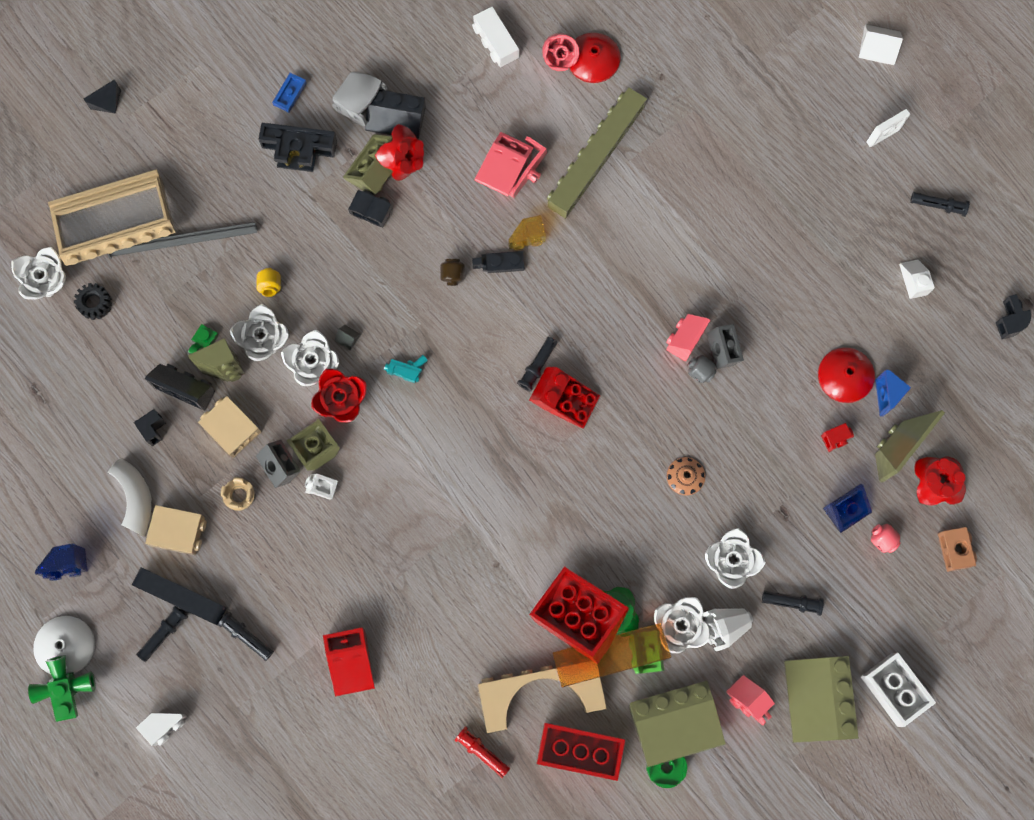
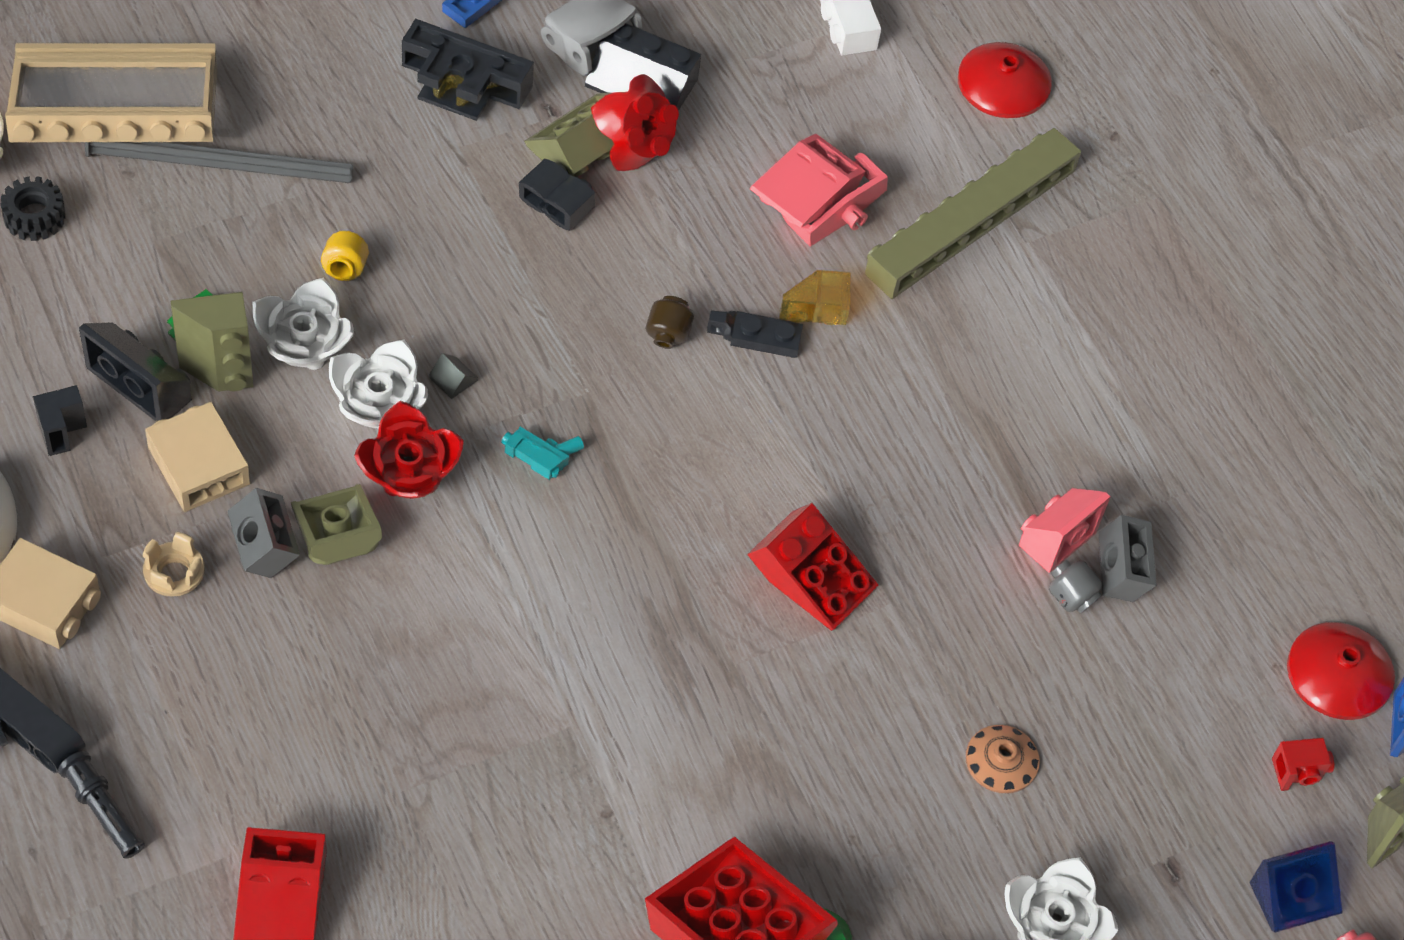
camera: 10 degrees right, 20 degrees down
(320, 486) = (327, 592): white bracket -> none
(533, 370) = (768, 511): black pin -> none
(560, 51) = (950, 49): coral cylinder -> none

